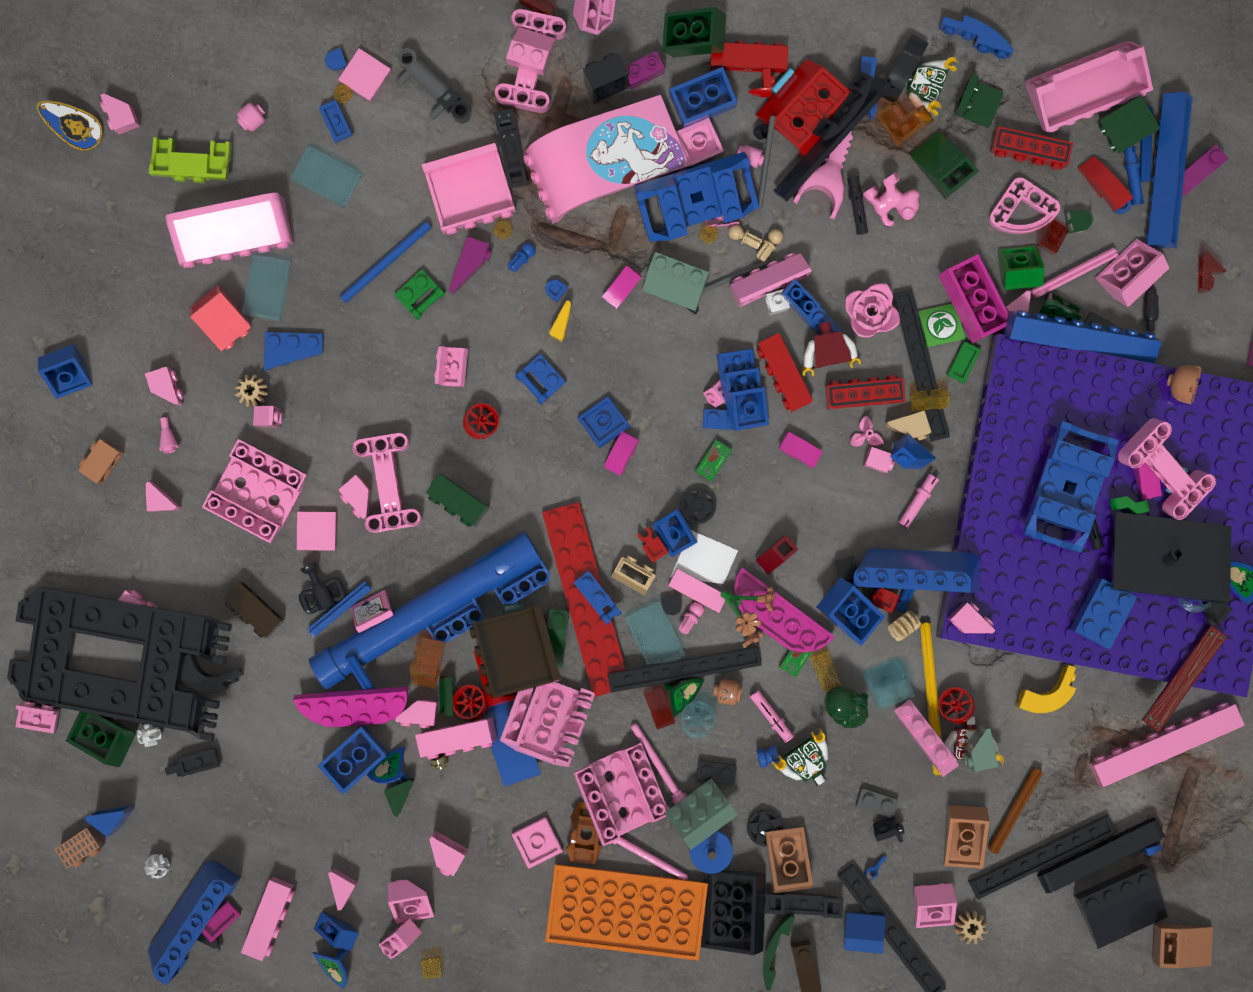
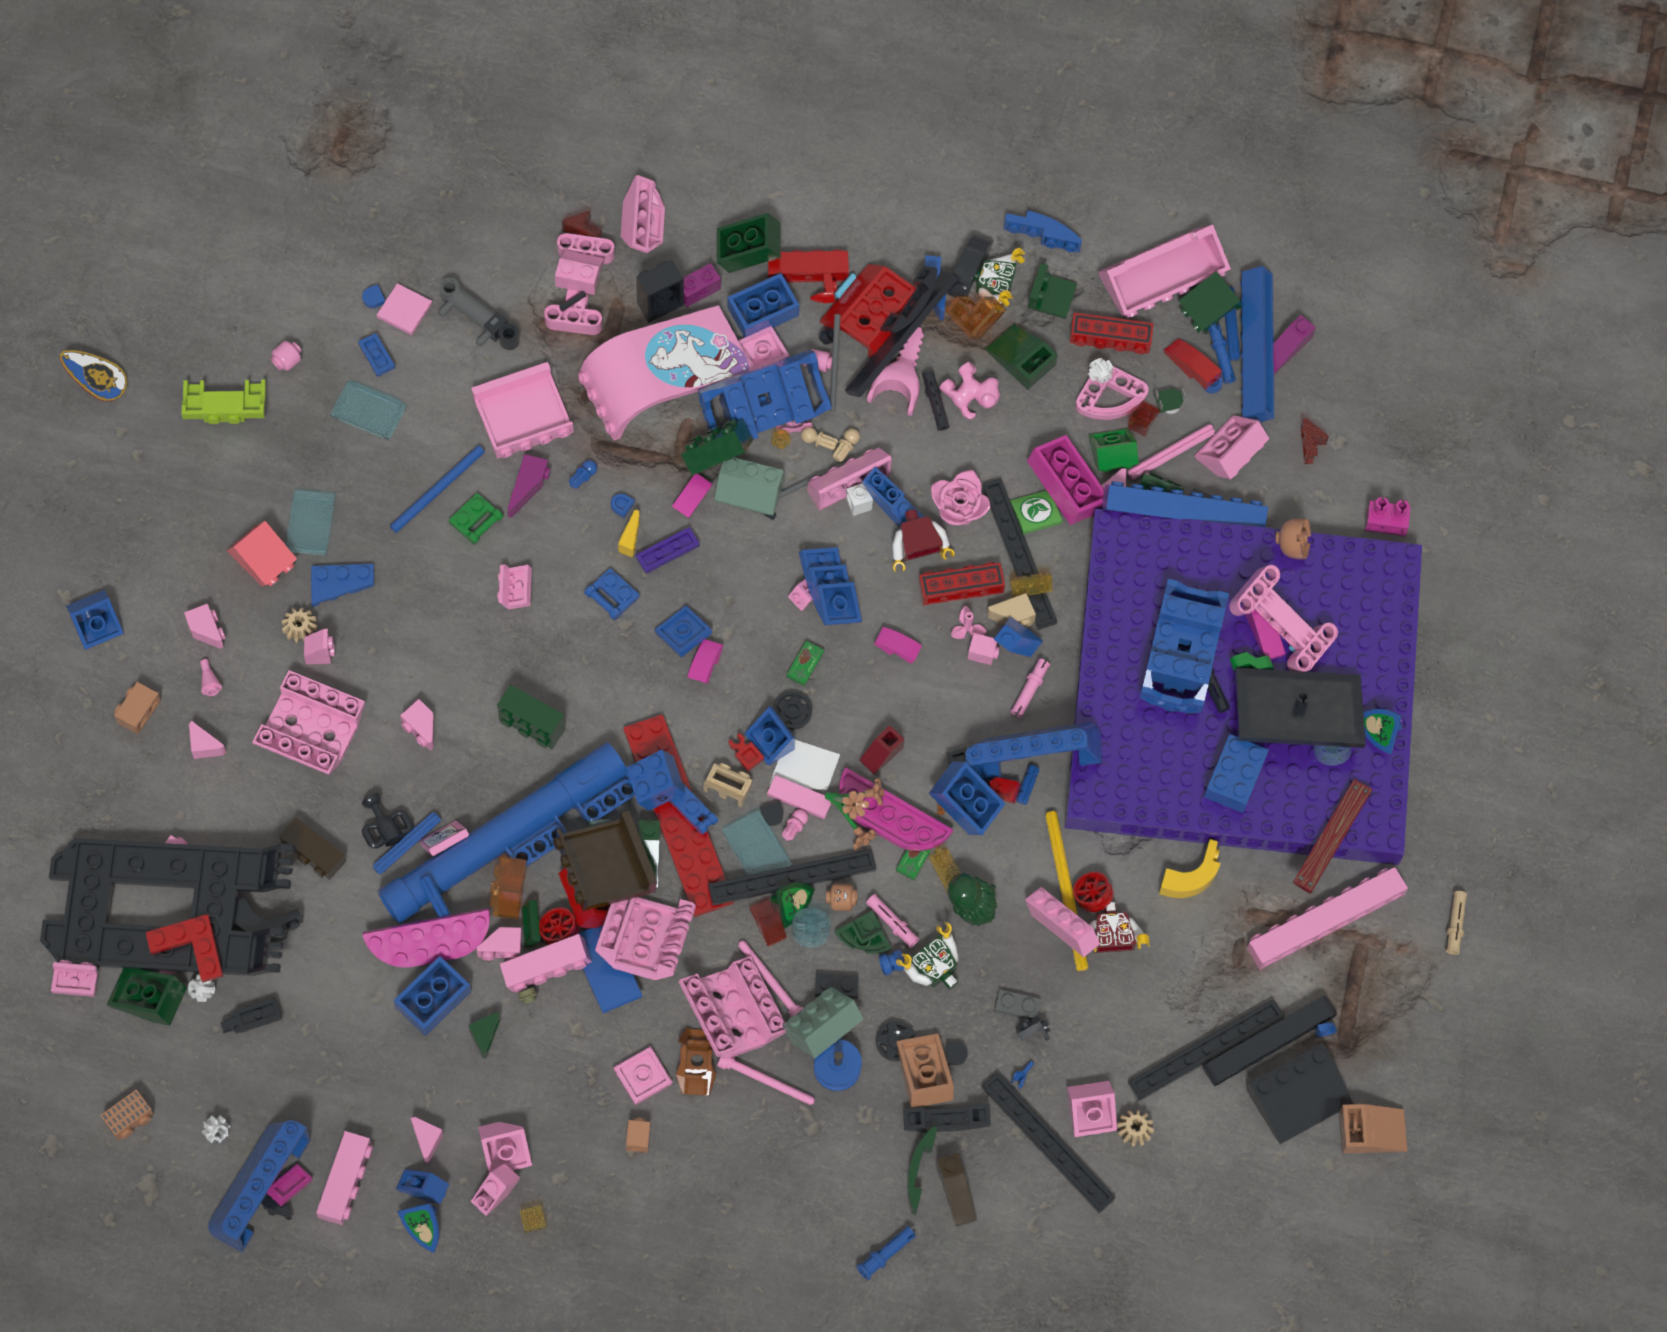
camera: 10 degrees left, 20 degrees down
(109, 820) = (163, 1076): blue slope -> none
(121, 115) = (147, 362): bright pink slope -> none
(147, 692) = (194, 931): none -> red plate
(229, 229) = (268, 464): windscreen -> none
(316, 530) = (377, 764): bright pink tile -> none
(342, 89) = (382, 323): clear yellow plate -> none
(387, 482) = (452, 708): bright pink beam -> none
(389, 768) = (473, 1004): shield -> none
(447, 853) = (545, 1087): bright pink slope -> none
(481, 421) = (544, 644): red wheel -> none
(502, 225) = (561, 444): clear yellow plate -> none
(510, 148) = (563, 368): black slope -> none
(522, 81) = (572, 301): none -> black piece
(529, 899) = (638, 1135): none -> nougat brick
(566, 573) = (655, 780): none -> blue brick
(594, 340) = (667, 550): none -> dark purple plate
(626, 912) = (748, 1141): orange plate -> none
(648, 245) = (716, 446): none -> dark green brick
(717, 419) = (807, 622): blue plate -> none
(734, 912) = (869, 1130): black slope -> none
(746, 725) = (864, 934): none -> dark green brick
(784, 373) = (874, 569): red brick -> none
(817, 844) = (955, 1053): none -> black tile
(864, 932) = (1017, 1144): blue slope -> none
(888, 684) = (1017, 878): clear light blue slope -> none
(904, 625) = (1027, 813): tan gear -> none
(963, 362) = (1064, 547): green tile -> none
(966, 836) = (1119, 1032): nougat slope -> none
(968, 620) = (1094, 792): bright pink slope -> none
(980, 750) = (1122, 927): sand green slope -> none
(1015, 810) = (1171, 1002): dark orange axle -> none
(1017, 189) = (1100, 370): none -> white gear
(1151, 308) = (1256, 479): black piece -> none
(1216, 613) = (1358, 765): black plate -> none

